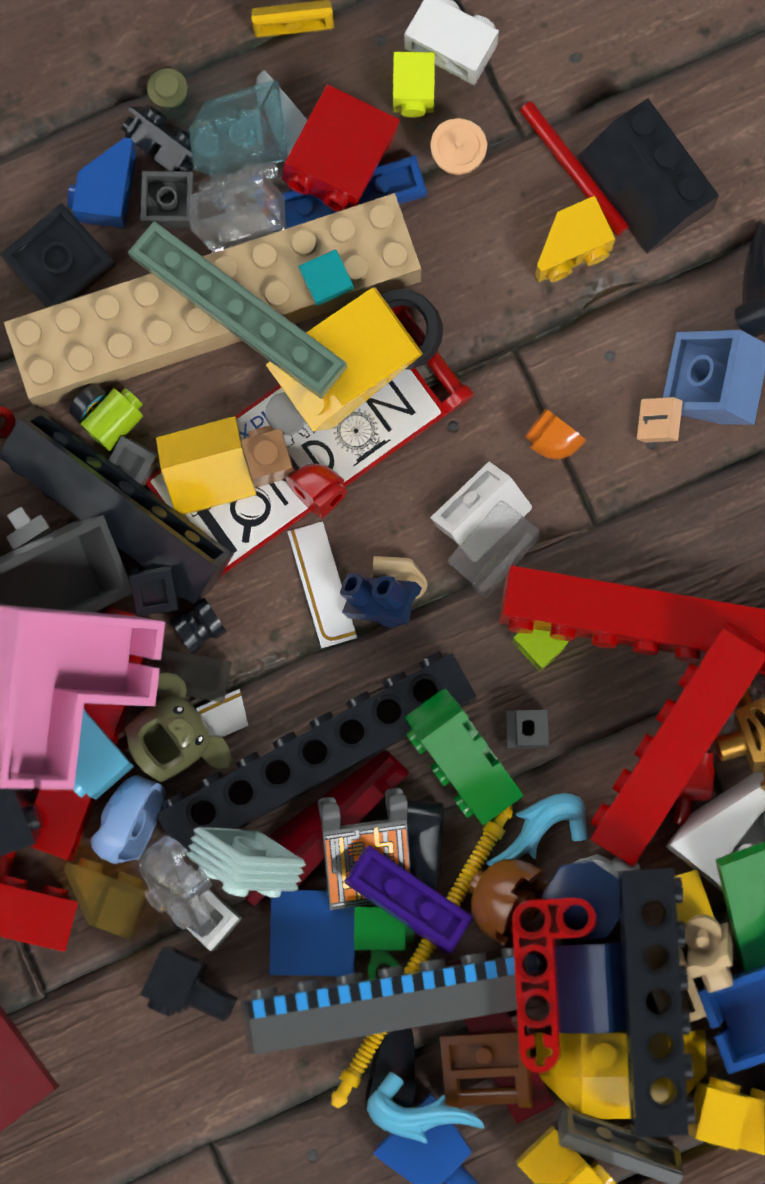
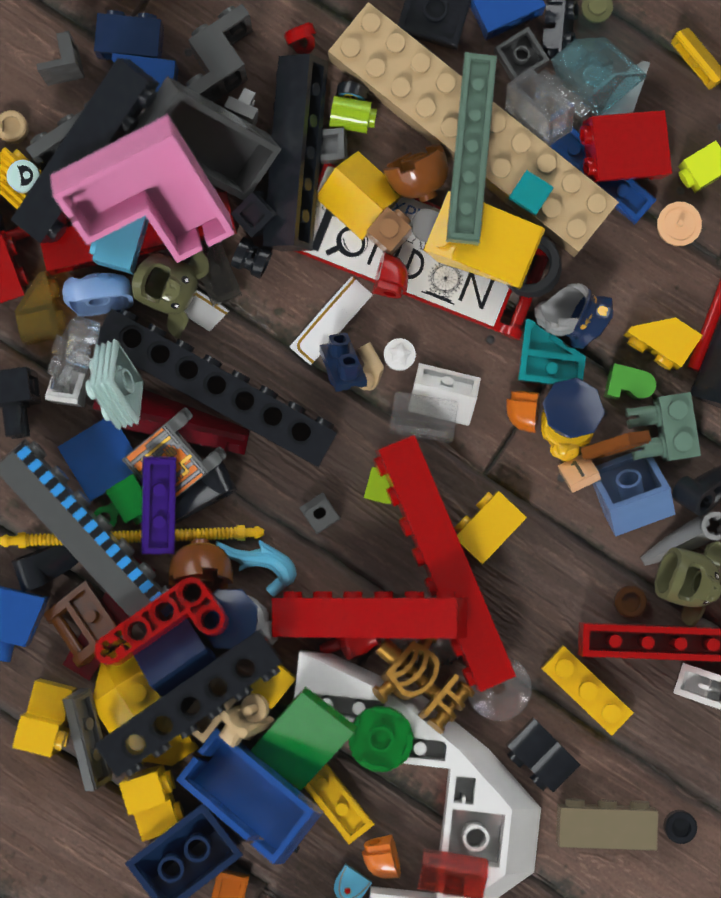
camera: 50 degrees right, 5 degrees up
(224, 386) = (418, 173): none -> dark orange cylinder
(407, 533) = (399, 354): none -> white tile
(413, 1121) = (19, 597): medium azure piece -> none
(461, 757) = (271, 482): green wedge -> none
(486, 314) = (575, 314): none -> piece
(515, 375) = (547, 358): none -> teal wing
(594, 390) = (570, 417): none -> dark blue piece
(598, 301) = (633, 381): none -> bright green leg
(656, 360) = (616, 445): none -> dark orange tile
(658, 551) = (489, 526): none -> yellow brick
(675, 287) = (675, 426): none -> sand green brick

